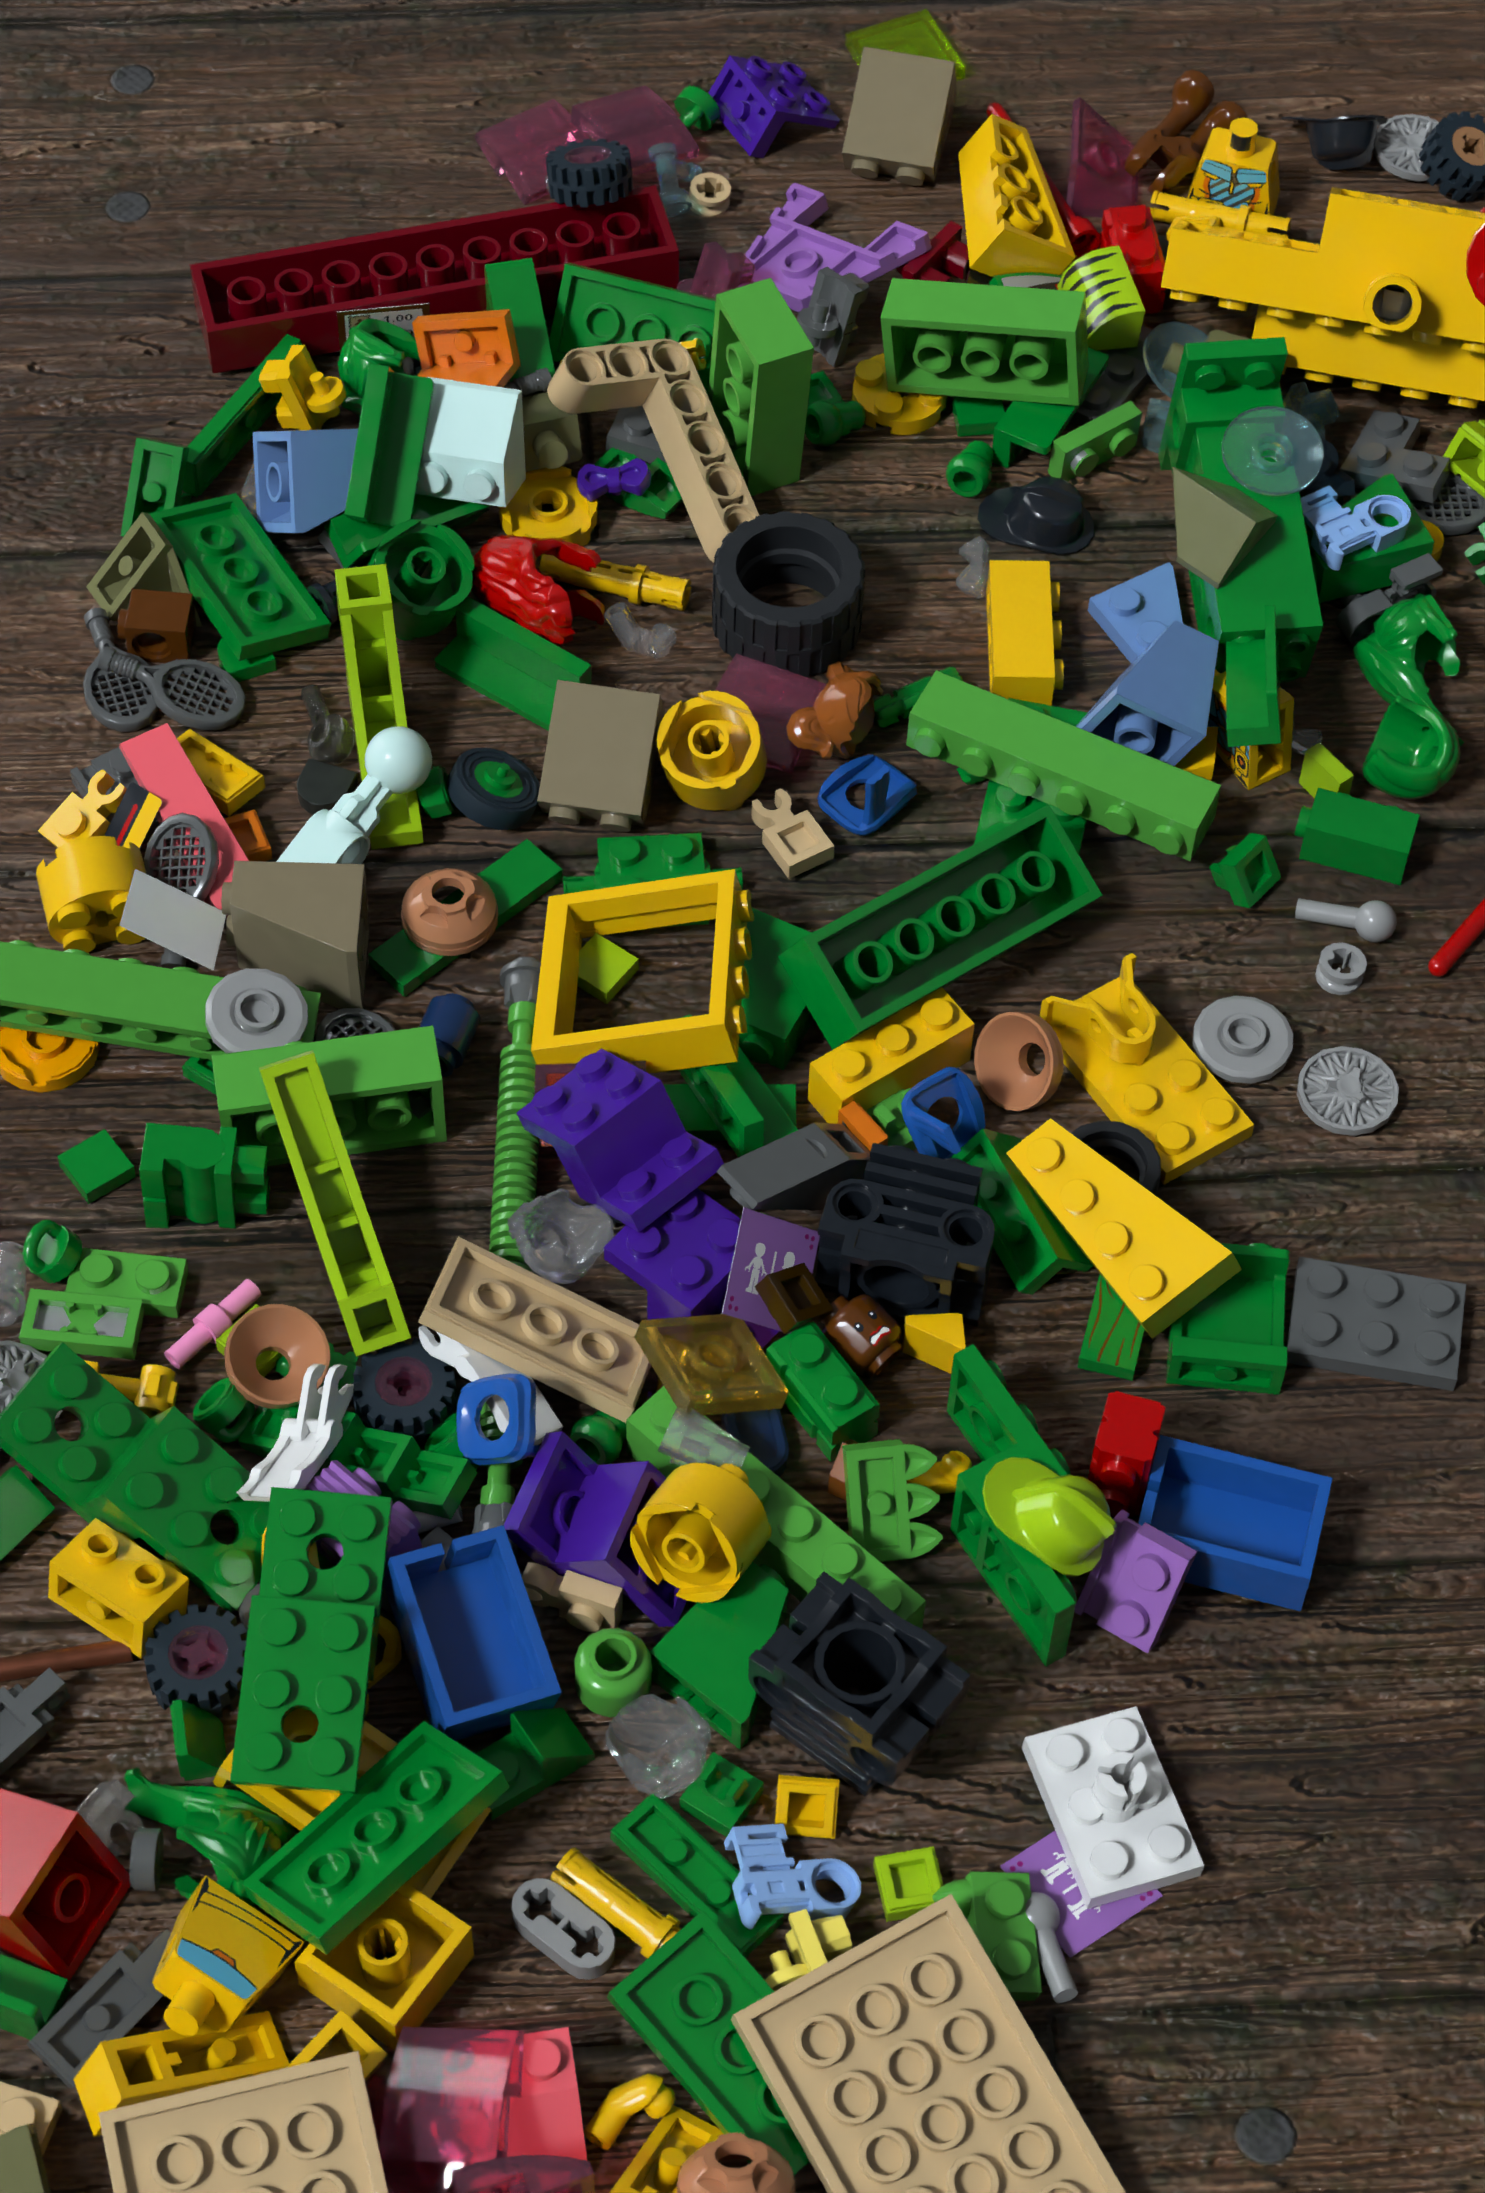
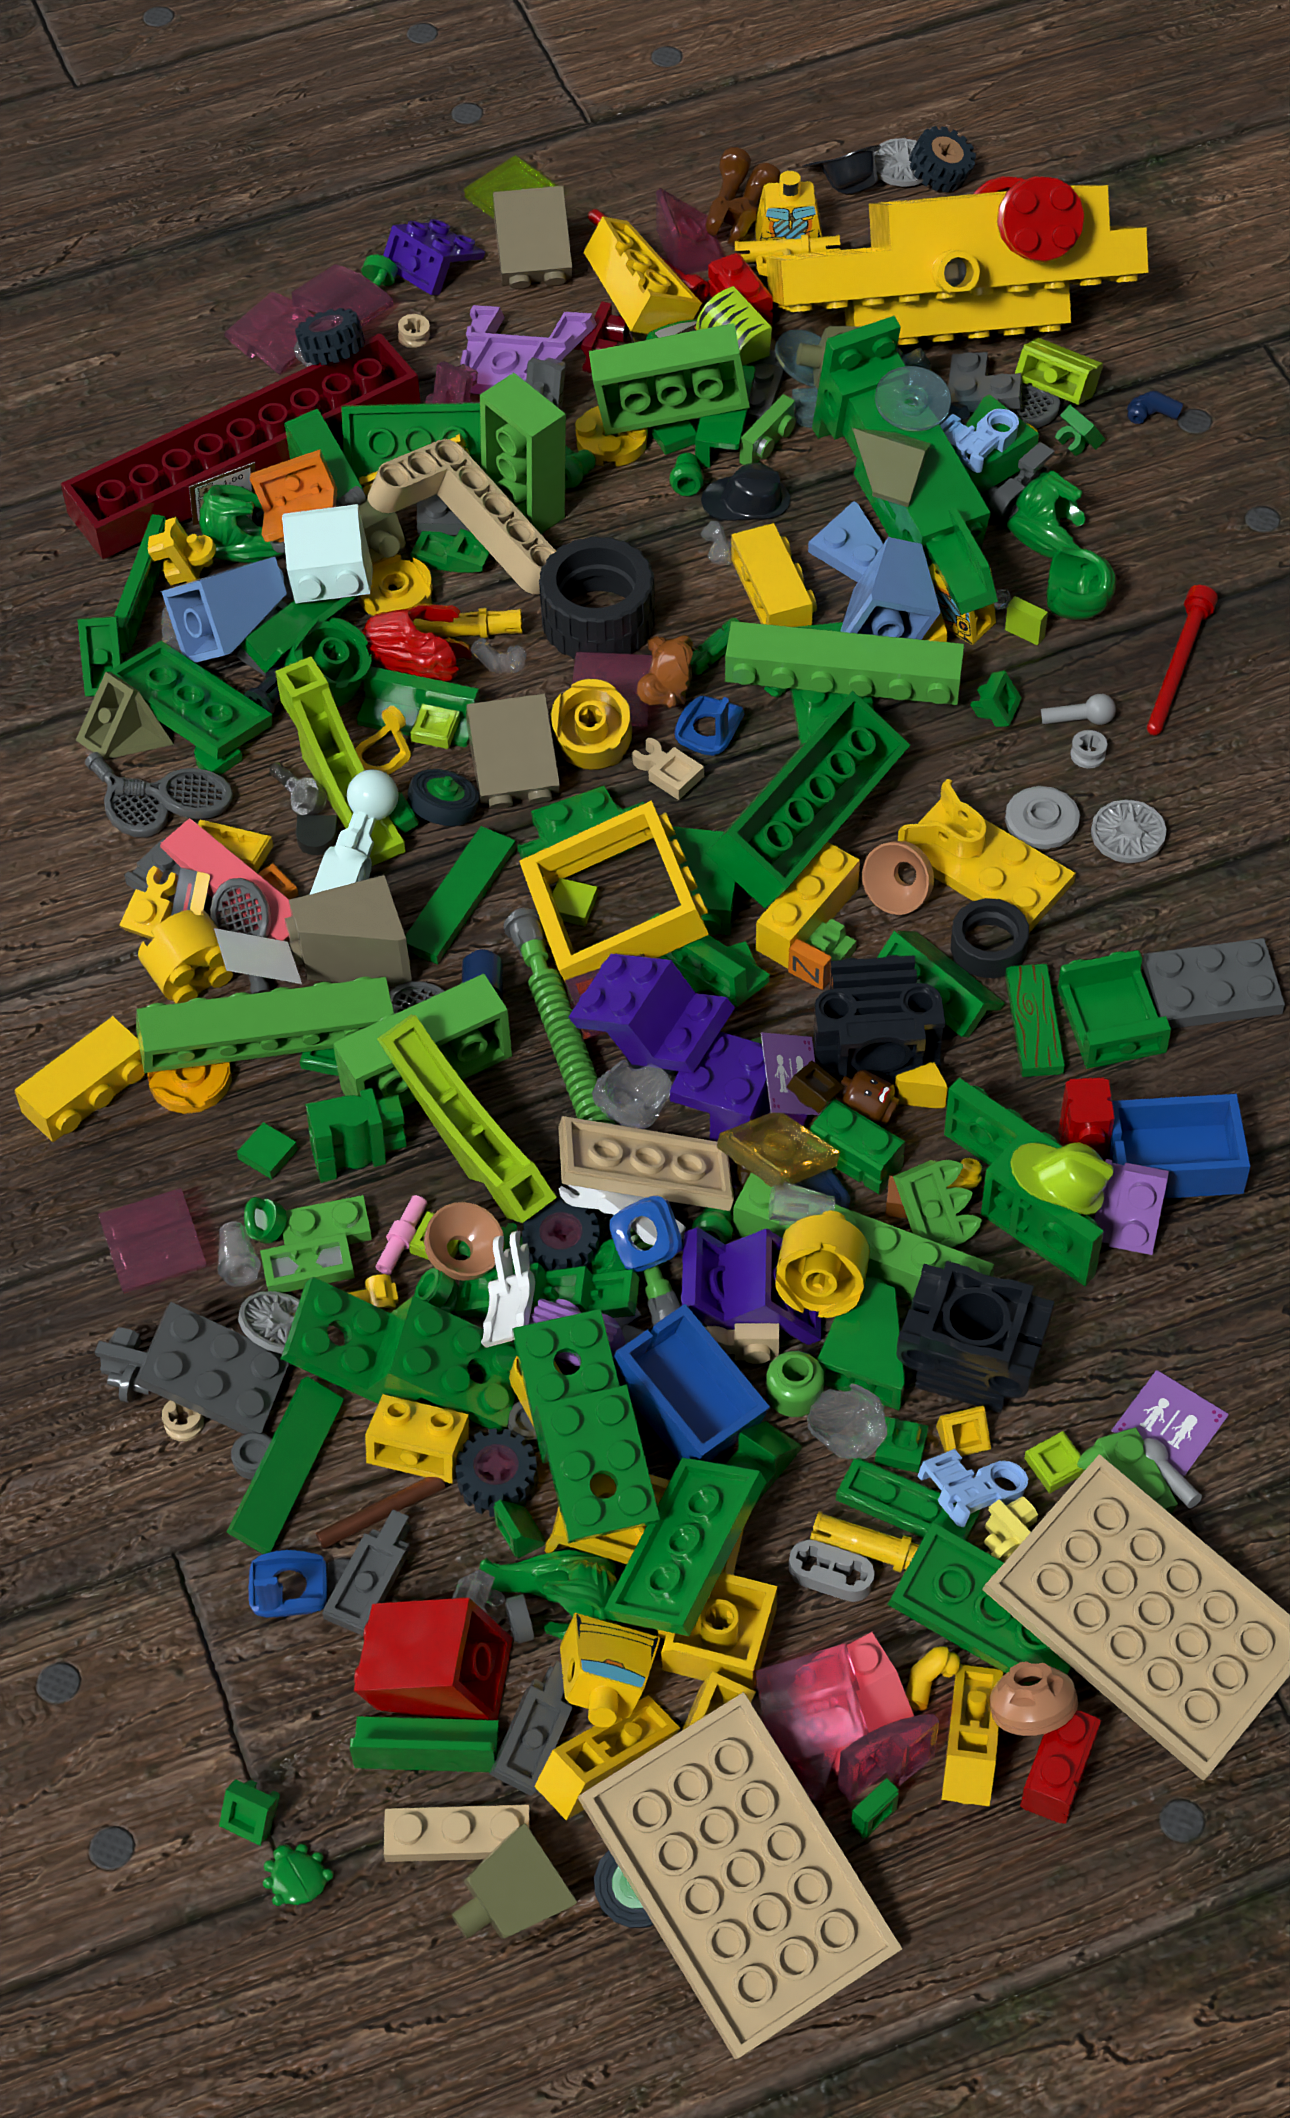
camera: 15 degrees left, 0 degrees up
(158, 625) = (145, 752): reddish brown brick -> none
(255, 1011) = (347, 1003): light grey wheel -> none
(389, 447) = (275, 573): green panel -> none
(449, 927) = (448, 905): nougat piece -> none
(471, 678) = (394, 722): none -> yellow piece
(523, 696) = (435, 726): none -> lime tile
(630, 477) = (424, 557): dark purple piece -> none
(669, 170) = (381, 322): clear light blue piece -> none
(796, 1169) = (782, 997): dark grey slope -> none
(929, 1133) = (858, 943): blue piece -> none
(1112, 1807) = (1172, 1365): white plate -> none
(1132, 1237) = (1025, 970): yellow wedge -> none
(1356, 835) = (1064, 653): green brick -> none

